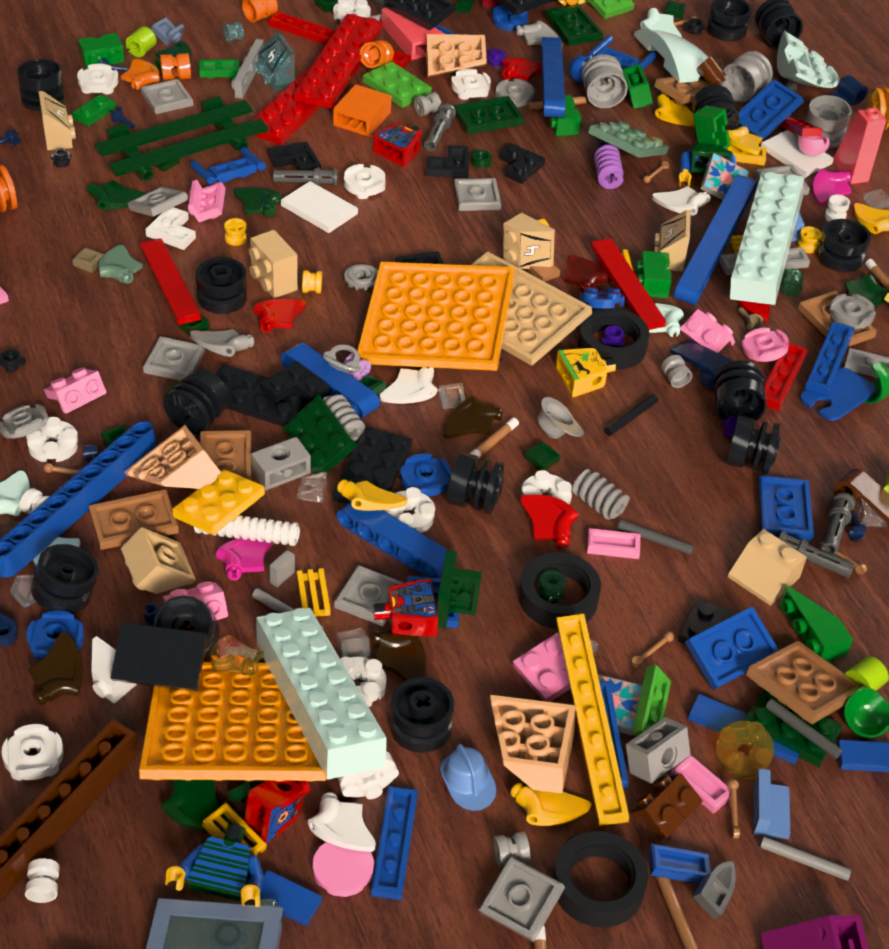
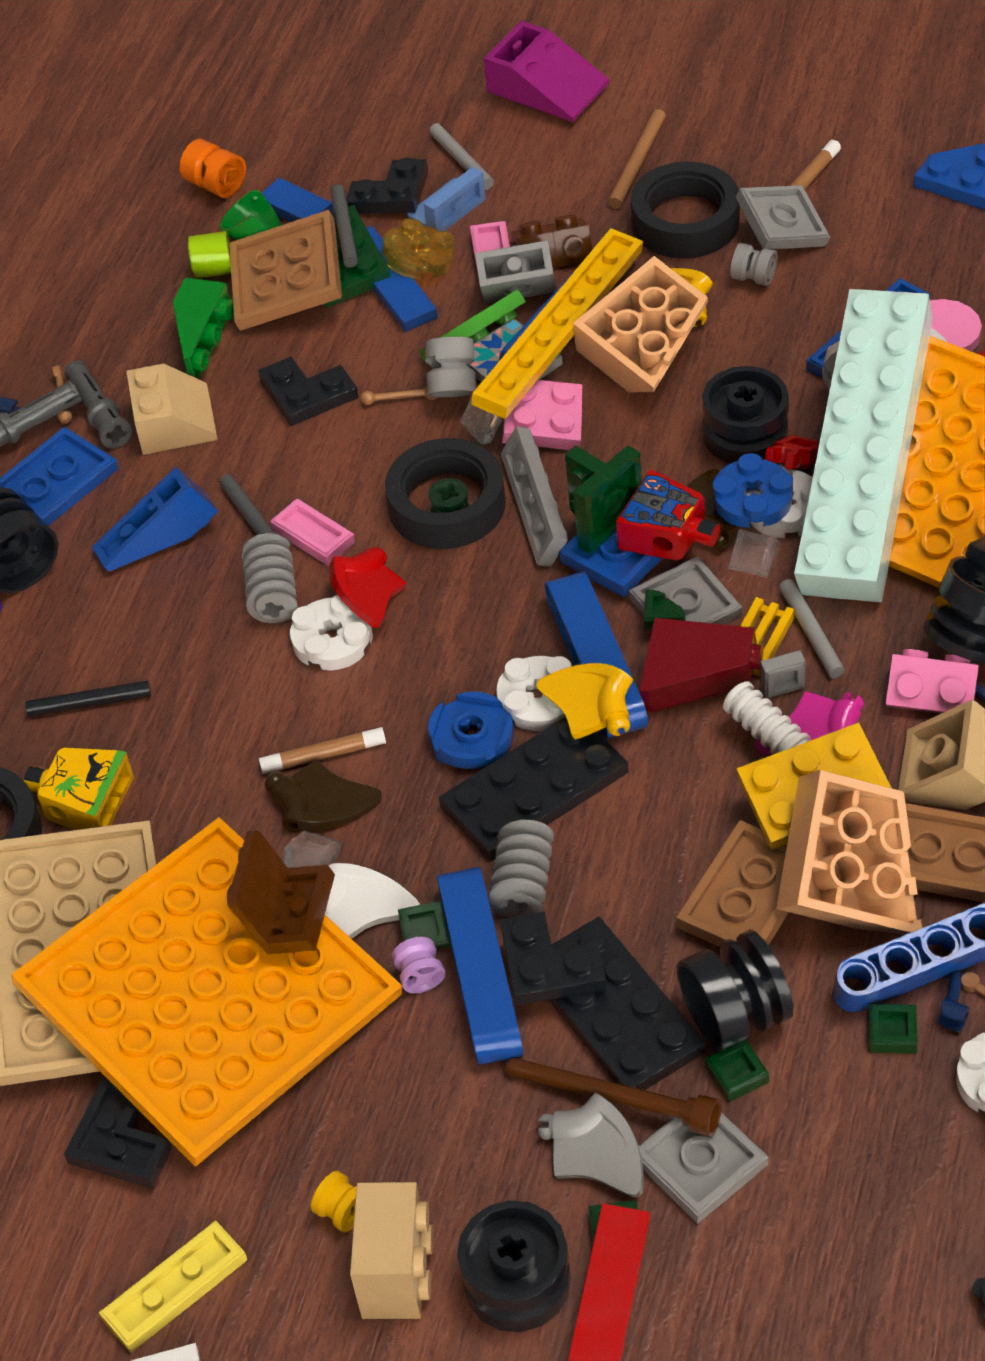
camera: 135 degrees left, 5 degrees up
(77, 389) = (915, 1165): bright pink bracket -> none
(182, 358) = (698, 1113): none -> reddish brown piece
(234, 657) = (921, 573): clear yellow arm -> none
(278, 313) = (452, 1169): red arm -> none
(281, 463) = (652, 827): light grey brick -> none
(313, 487) = (645, 789): clear slope -> none
(321, 435) = (580, 848): dark green plate -> none
(331, 546) = (696, 661): none -> dark red slope
(350, 367) = (444, 930): light grey piece -> none
(355, 242) = (173, 1286): none -> light yellow tile
(356, 272) = (244, 1161): light grey gear -> none
(374, 571) = (660, 607): none -> dark green tile
(375, 645) = (752, 474): none -> blue plate
(376, 705) = (794, 452): none -> red plate
(432, 338) = (276, 902): none -> reddish brown bracket
(468, 778) = (736, 349): medium blue piece -> none
(476, 483) = (426, 653): black wheel -> none
(514, 616) = (534, 496): none -> light grey plate
(542, 456) = (279, 691): dark green tile -> none
(557, 420) = (211, 708): light grey piece -> none
(629, 655) = (450, 367): none -> light grey wheel
(678, 863) = (593, 190): blue tile -> none
(694, 502) = (159, 520): none -> blue slope
(716, 889) = (586, 157): dark grey plate -> none
(731, 647) = (319, 338): blue plate -> none
(733, 785) = (469, 223): medium nougat hinge -> none
(813, 796) = (395, 195): none -> black plate

